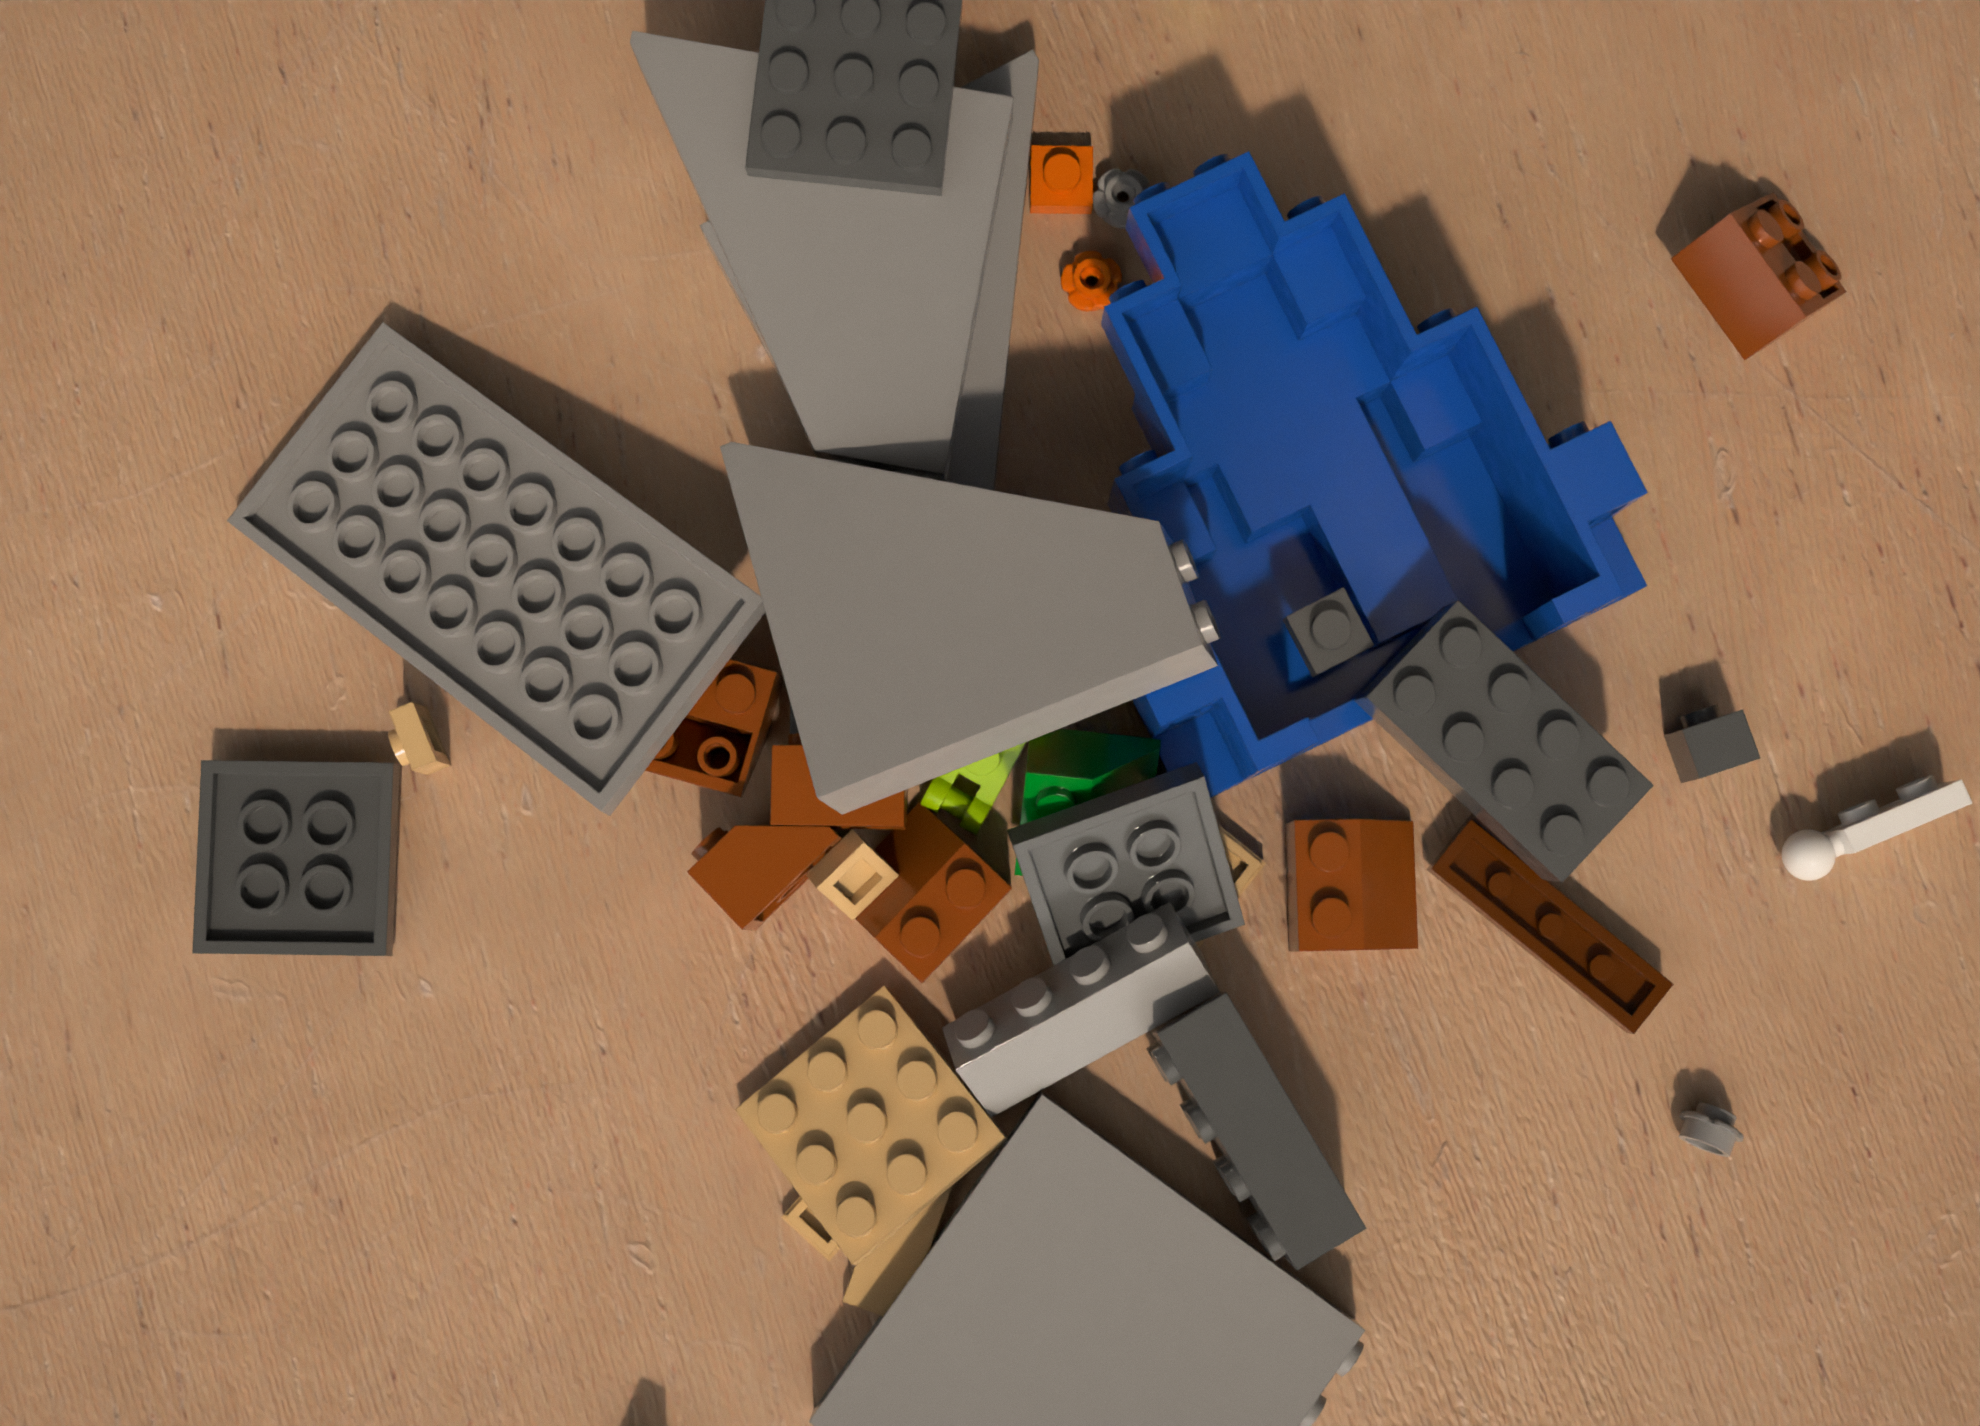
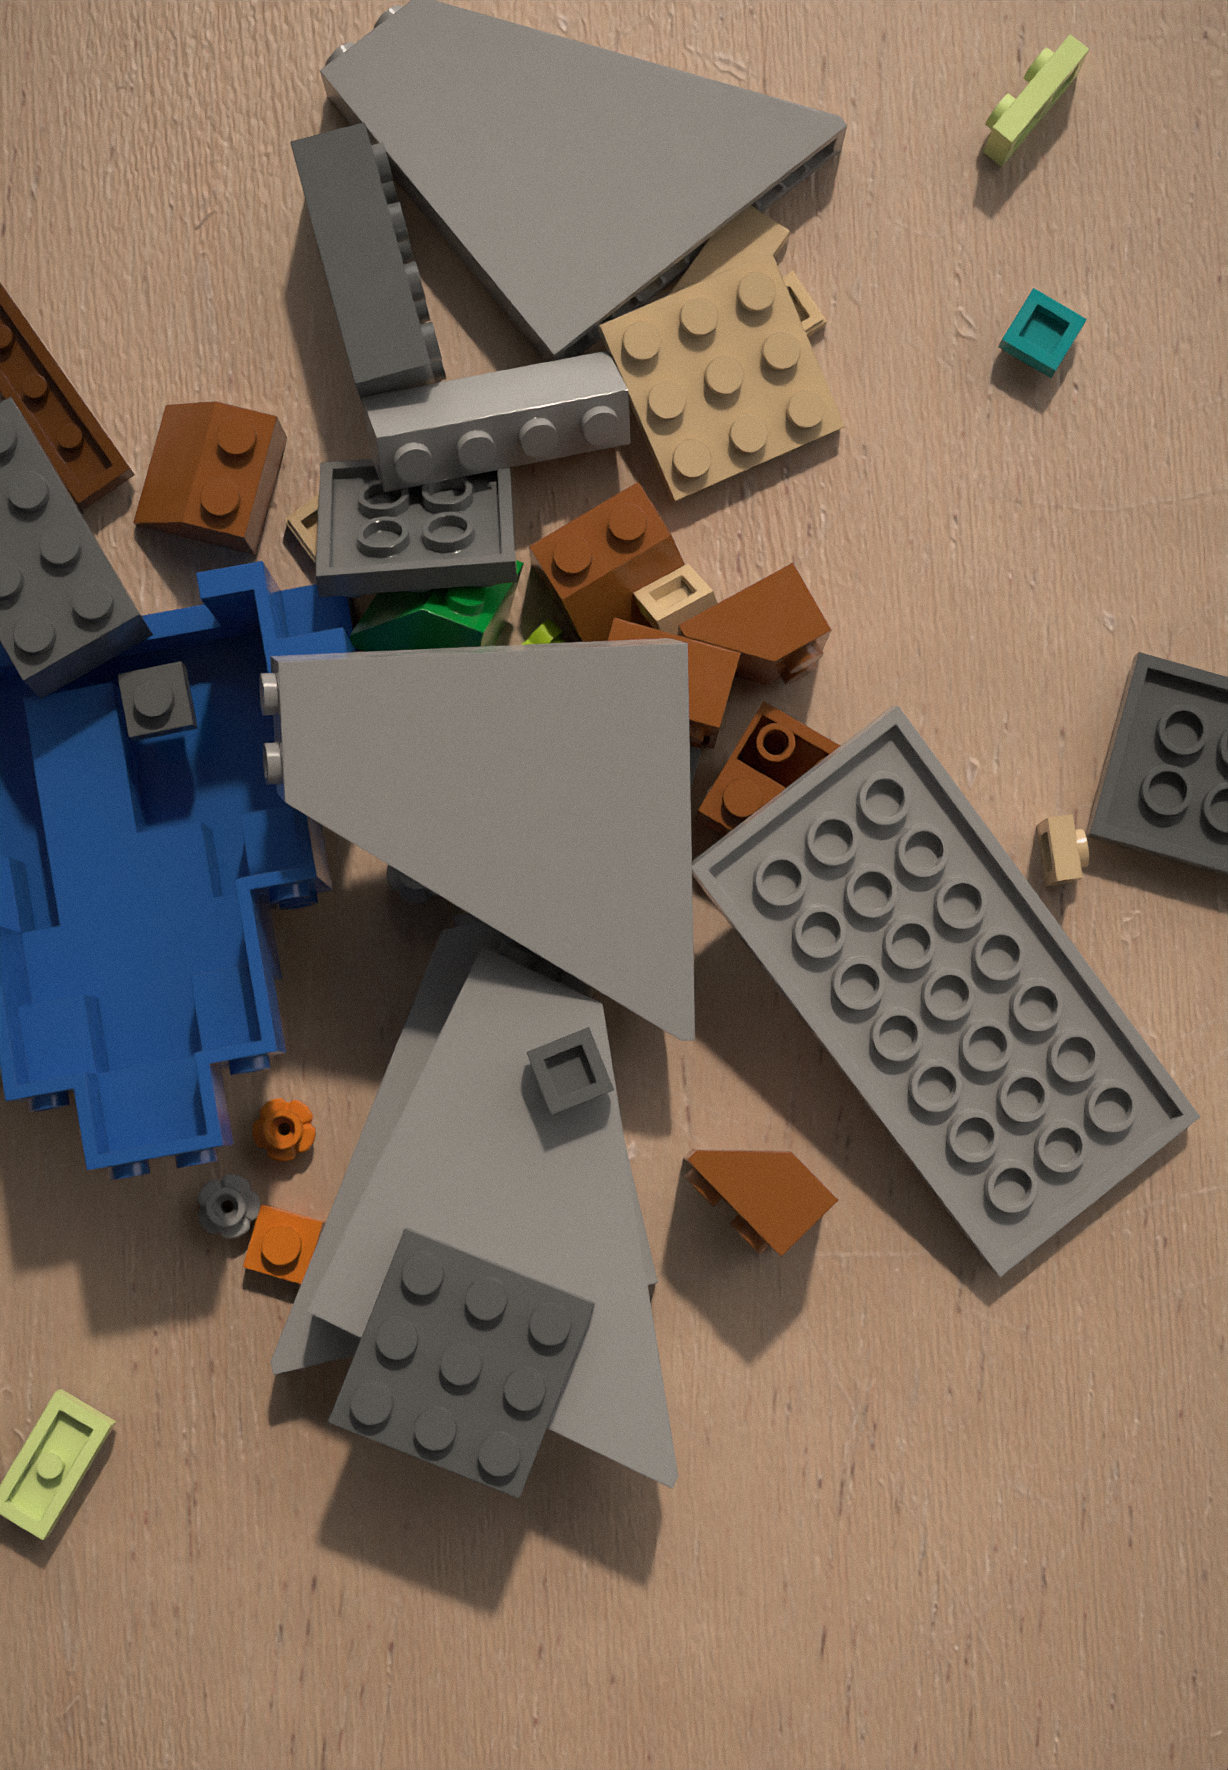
camera: 165 degrees left, 0 degrees up
(559, 1262) = (1042, 333): none -> teal plate
(622, 335) = (766, 1188): none -> dark orange slope
(825, 372) = (570, 1071): none -> dark grey plate

